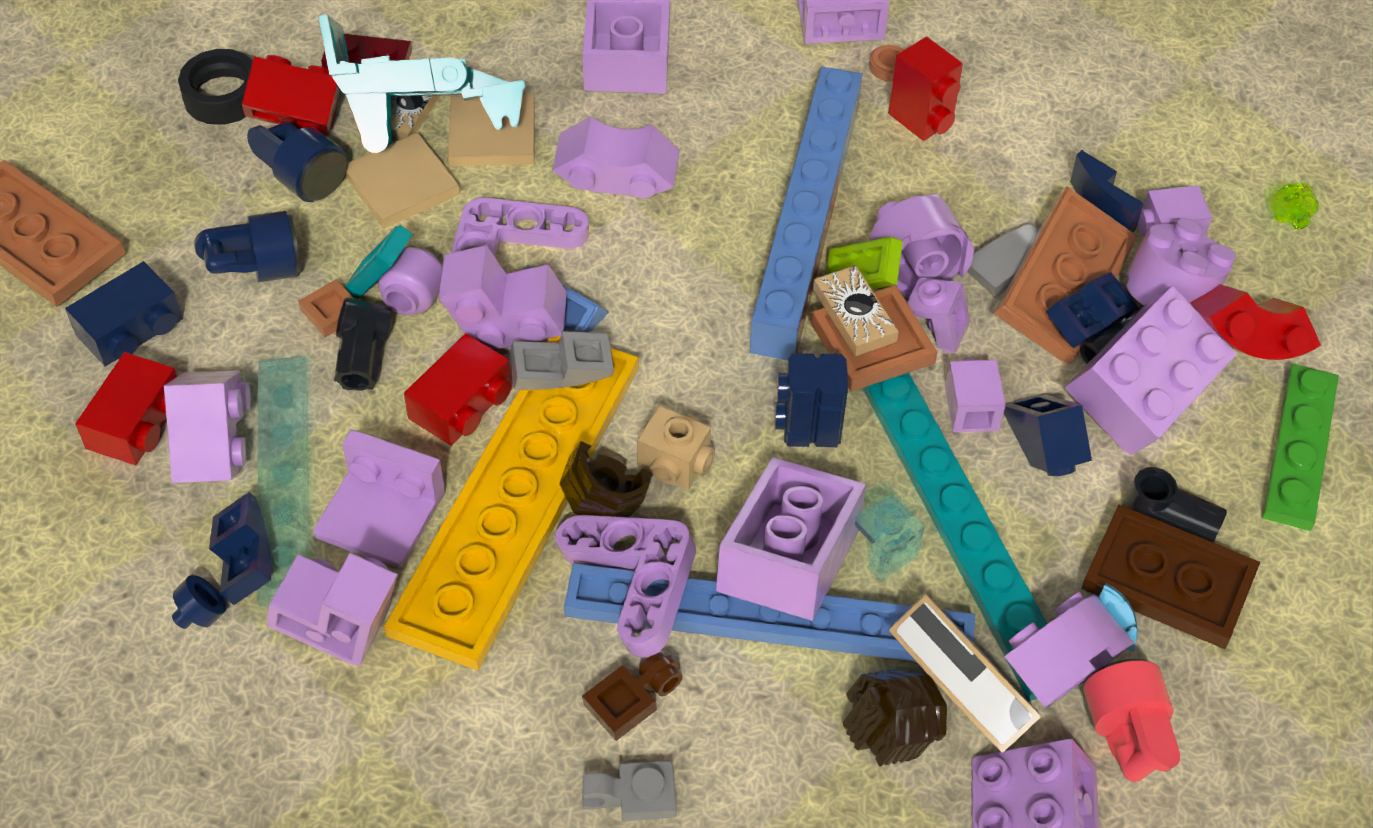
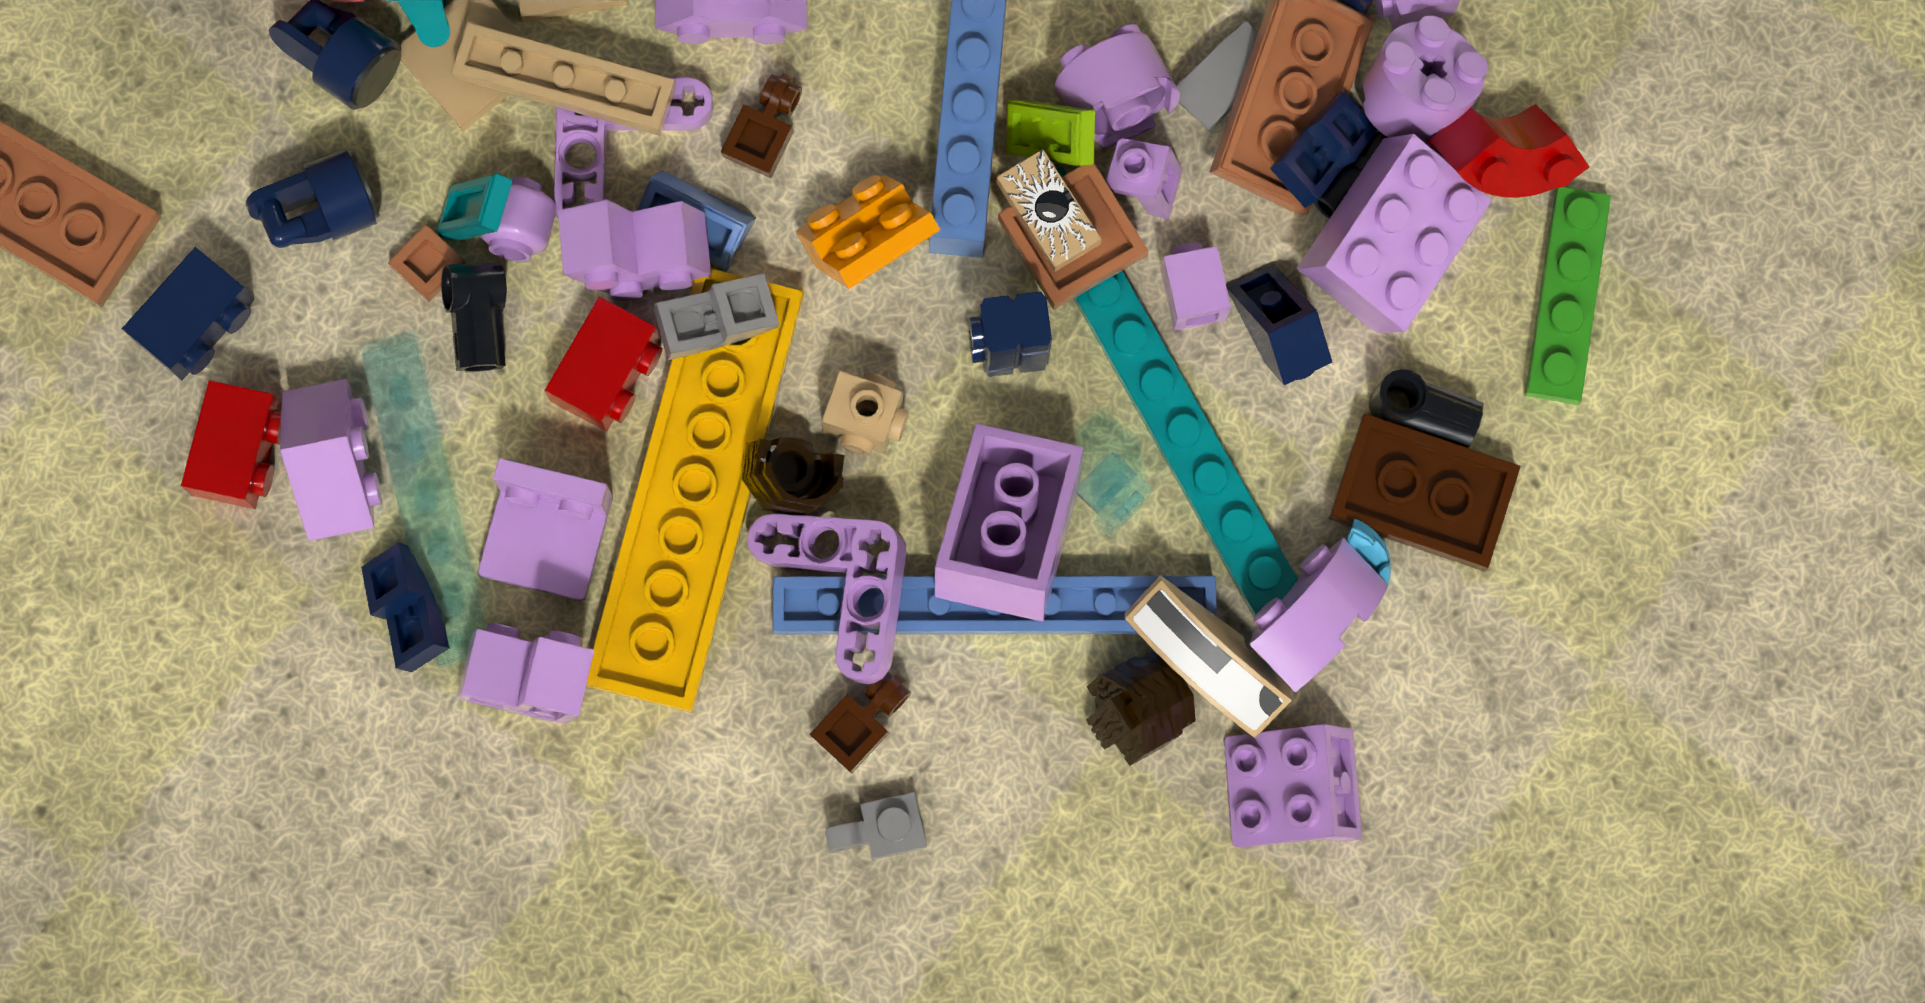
camera: 10 degrees left, 25 degrees up
(197, 603) = (375, 681): dark blue tile -> none
(472, 189) = (564, 79): none -> tan plate
(624, 253) = (759, 137): none -> reddish brown plate
(707, 310) = (865, 230): none -> light orange plate
(1133, 713) = (1388, 670): coral piece -> none

